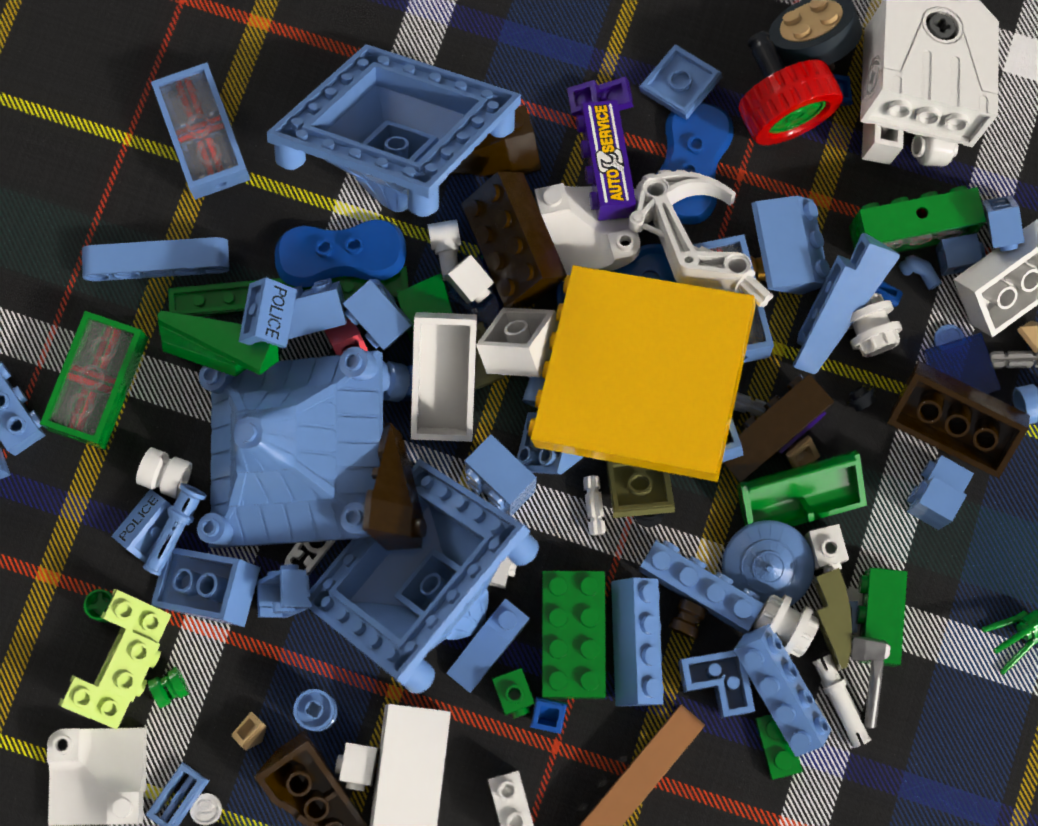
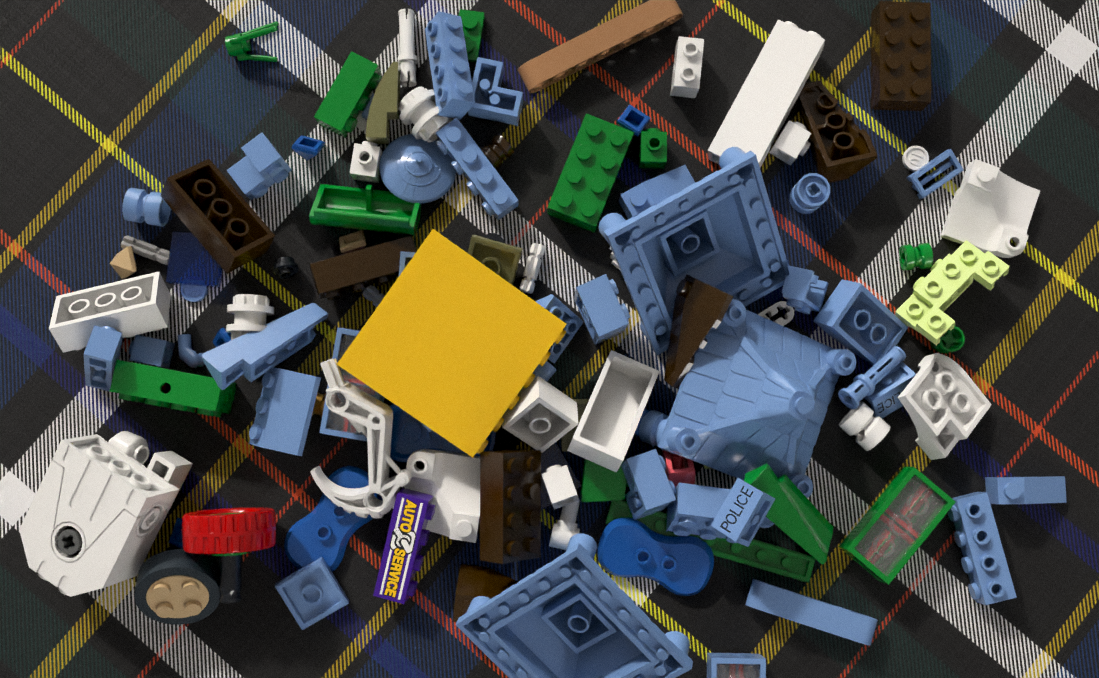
camera: 160 degrees left, 5 degrees up
(85, 529) = (942, 404): none -> white slope
(249, 732) = (864, 200): tan slope -> none
(592, 92) = (383, 609): dark purple slope -> none
(637, 642) = (544, 147): medium blue brick -> none
(876, 651) = (366, 63): flat silver piece -> none
(900, 541) = (307, 147): none -> blue slope

